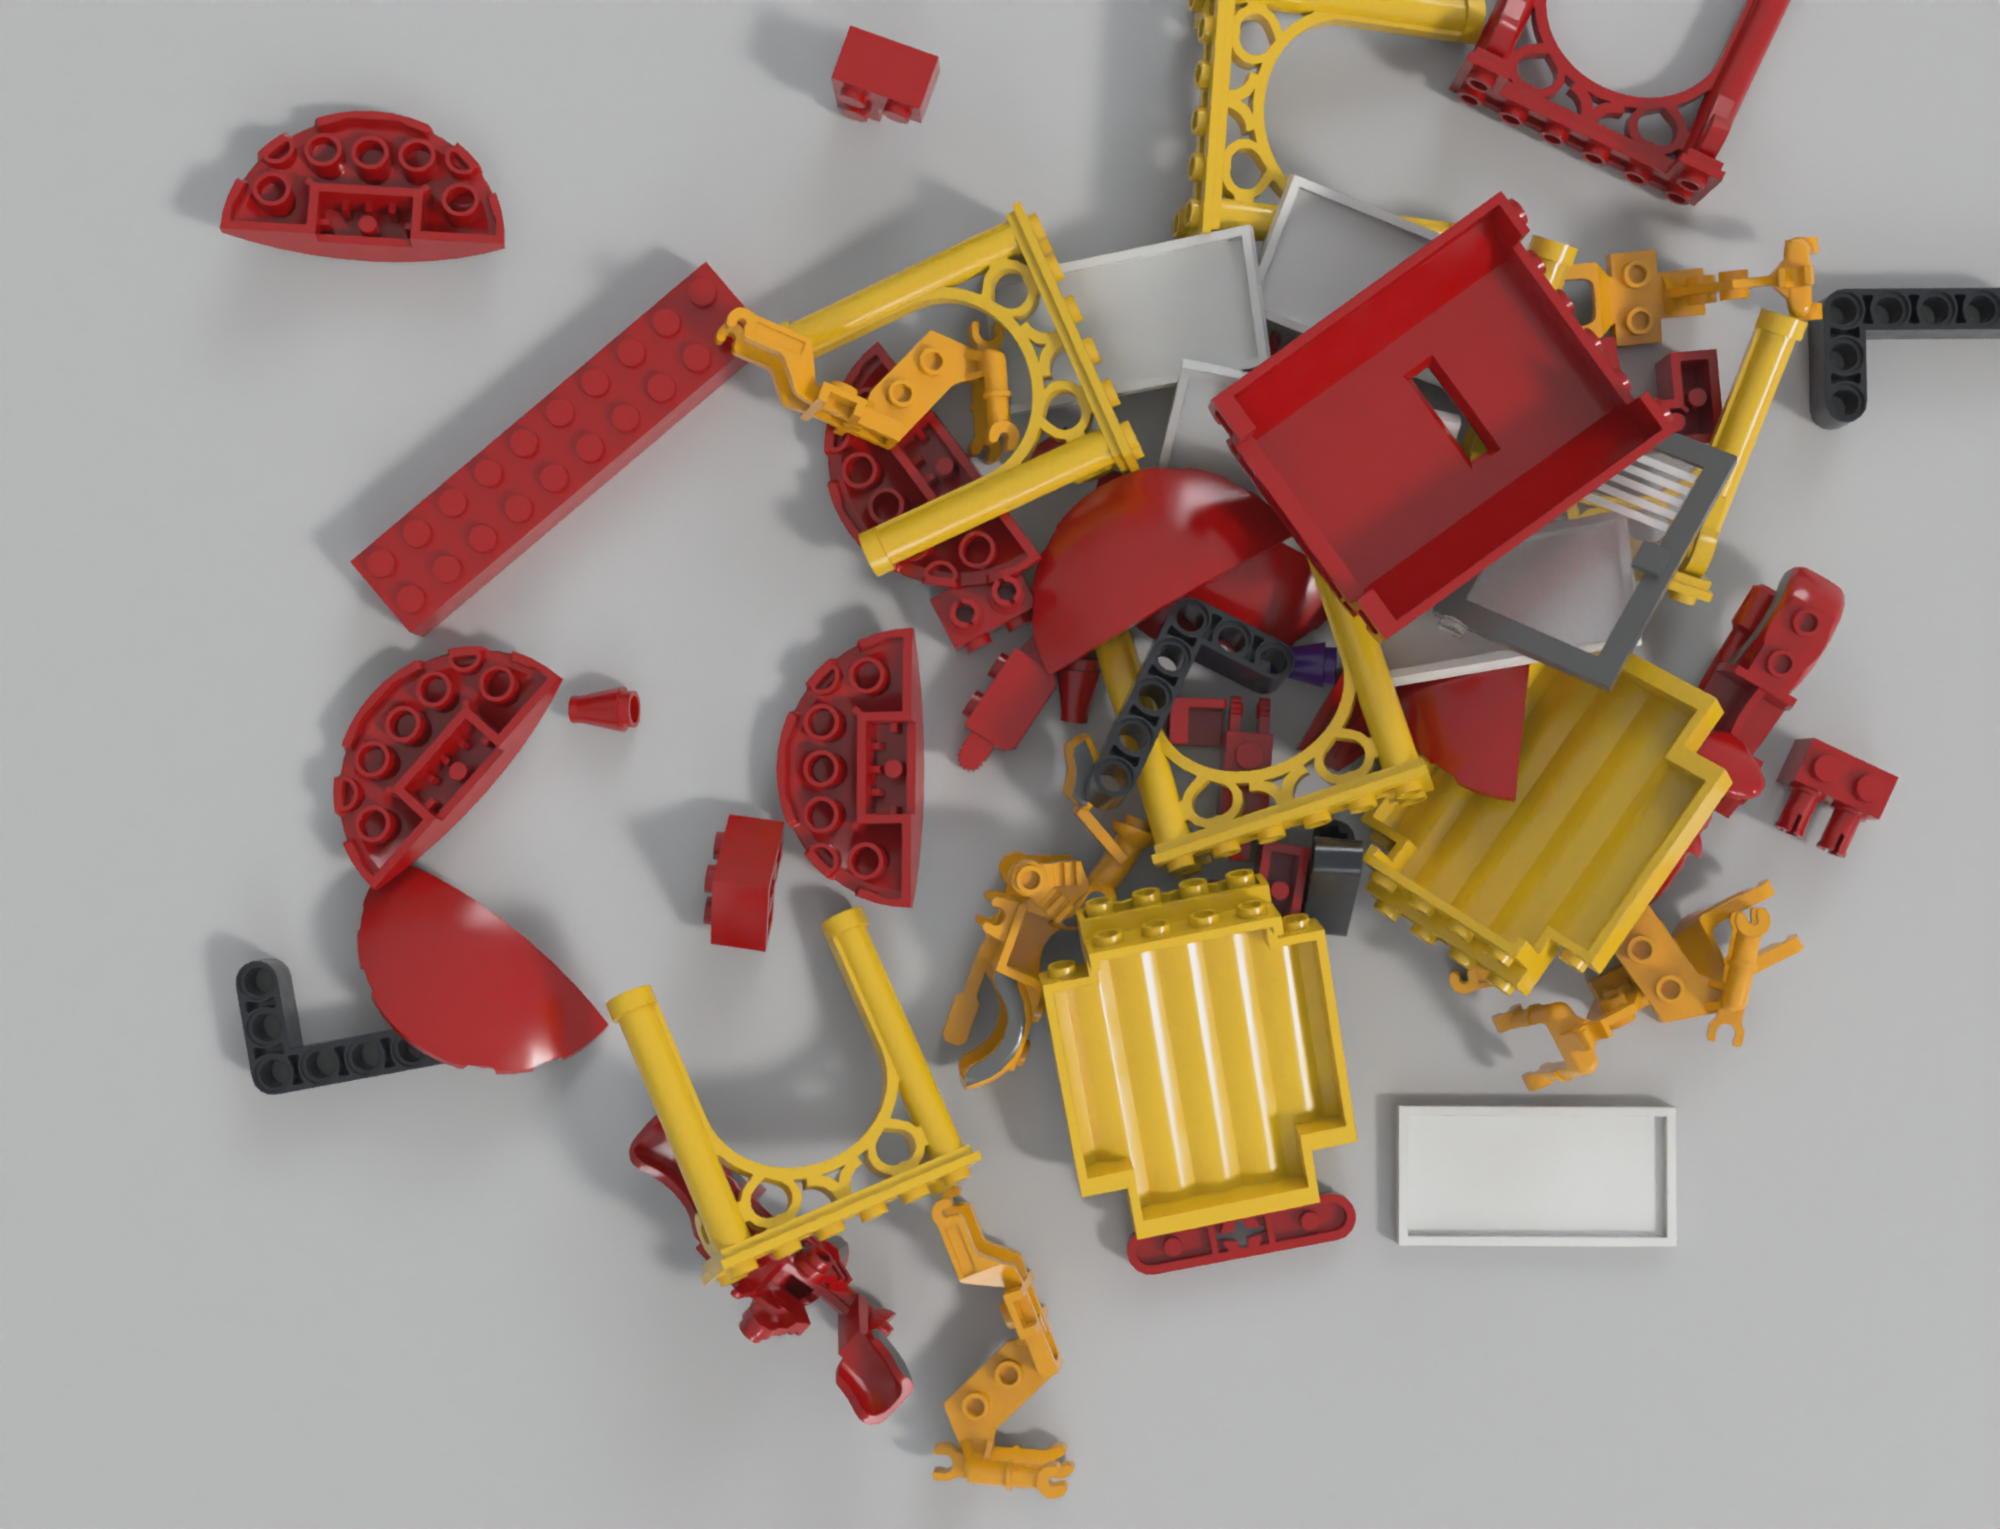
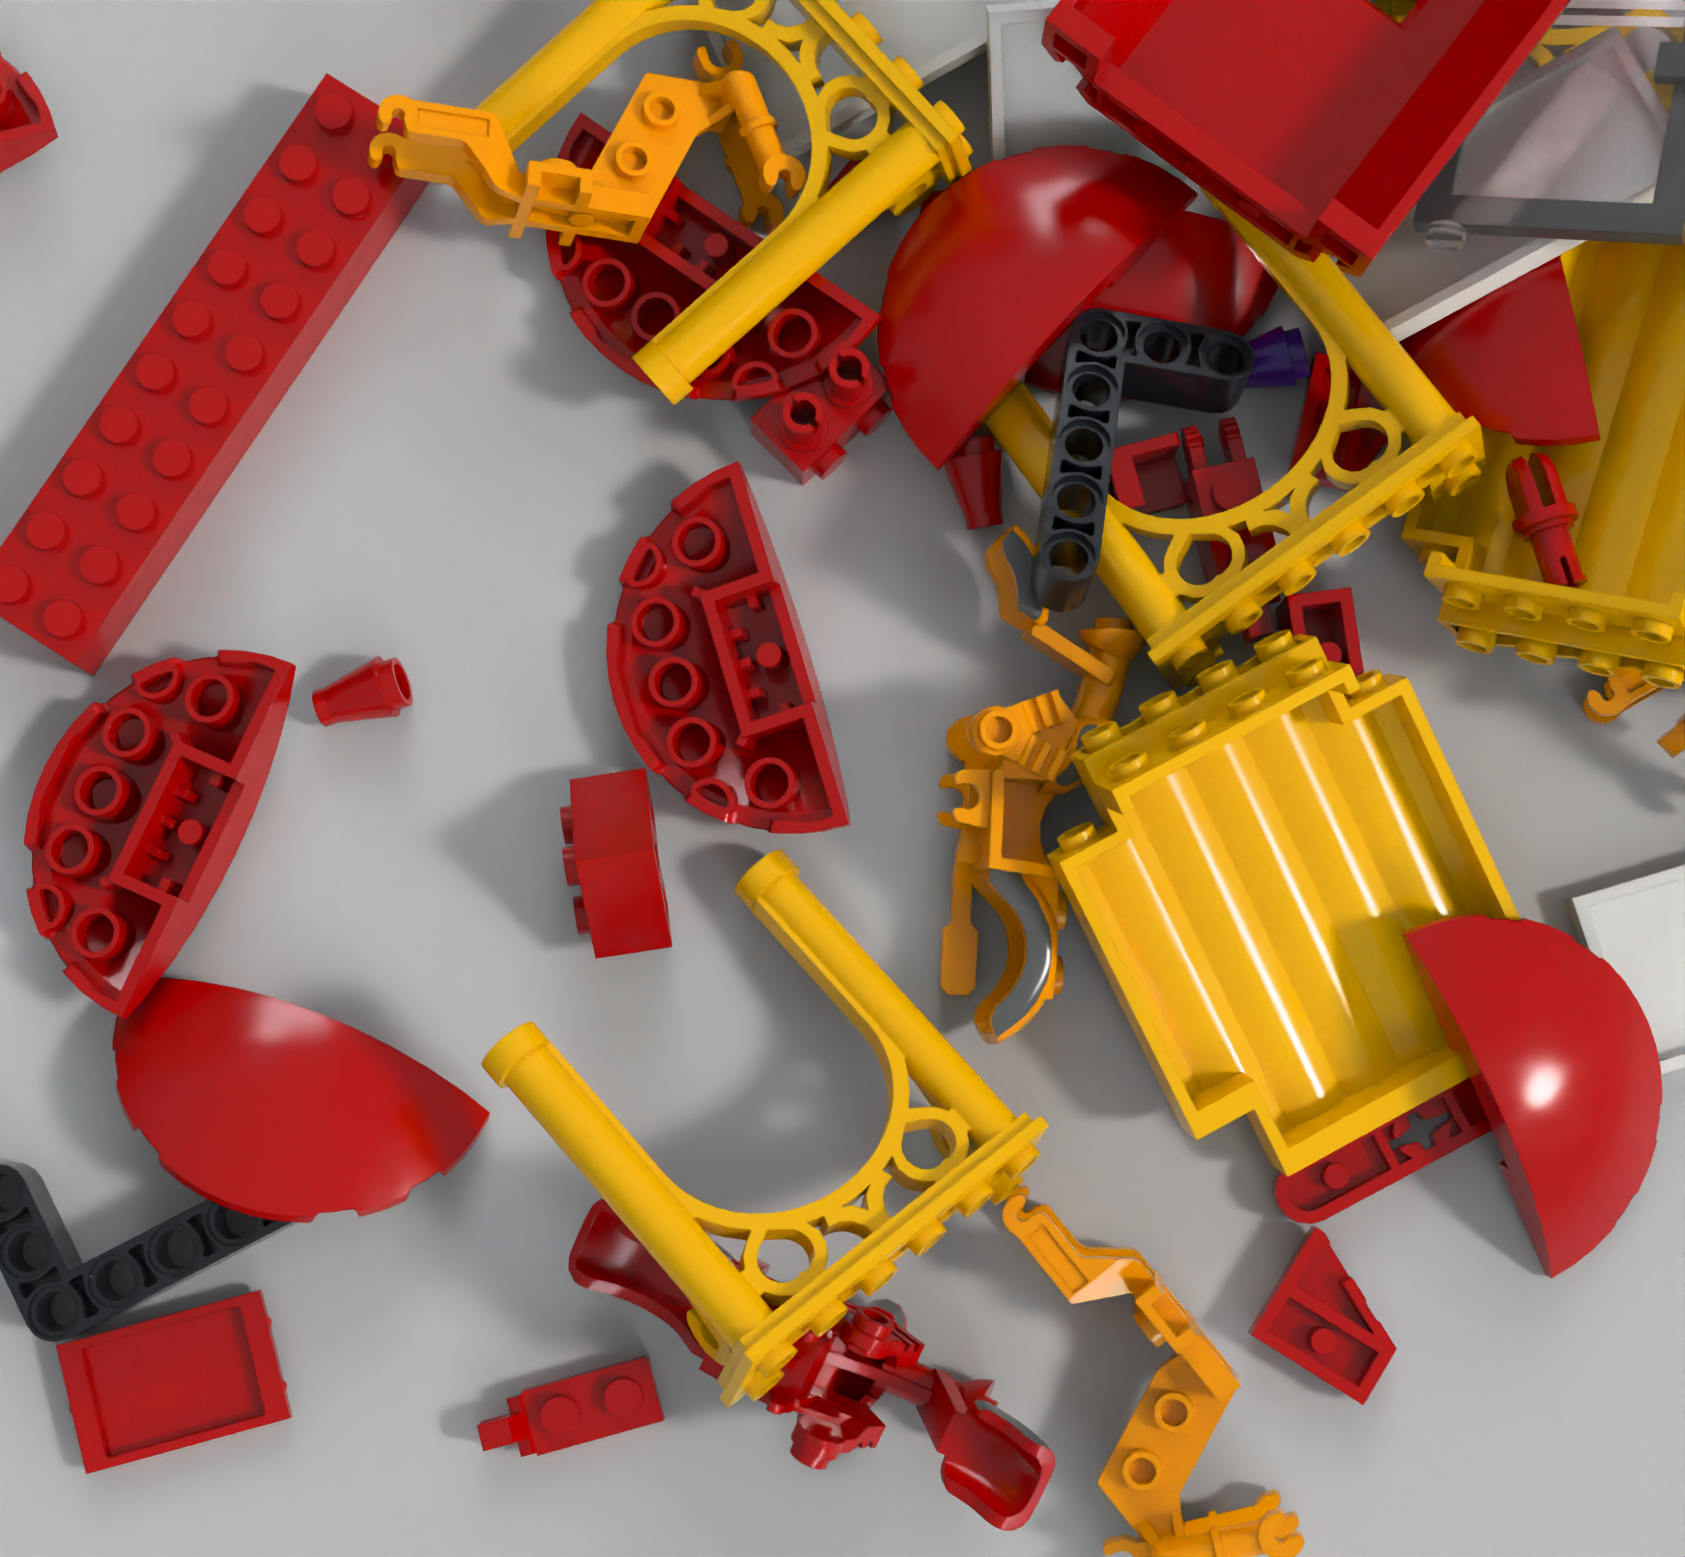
camera: 20 degrees left, 5 degrees down
(341, 1141) = (174, 1381): none -> red piece
(608, 1244) = (577, 1409): none -> red hinge
(1007, 707) = (894, 531): red hinge -> none
(1133, 1342) = (1324, 1321): none -> red wing
(1333, 877) = (1393, 613): black piece -> none
(1346, 1220) = (1556, 1066): none -> red brick
(1459, 851) = (1544, 518): none -> red arm

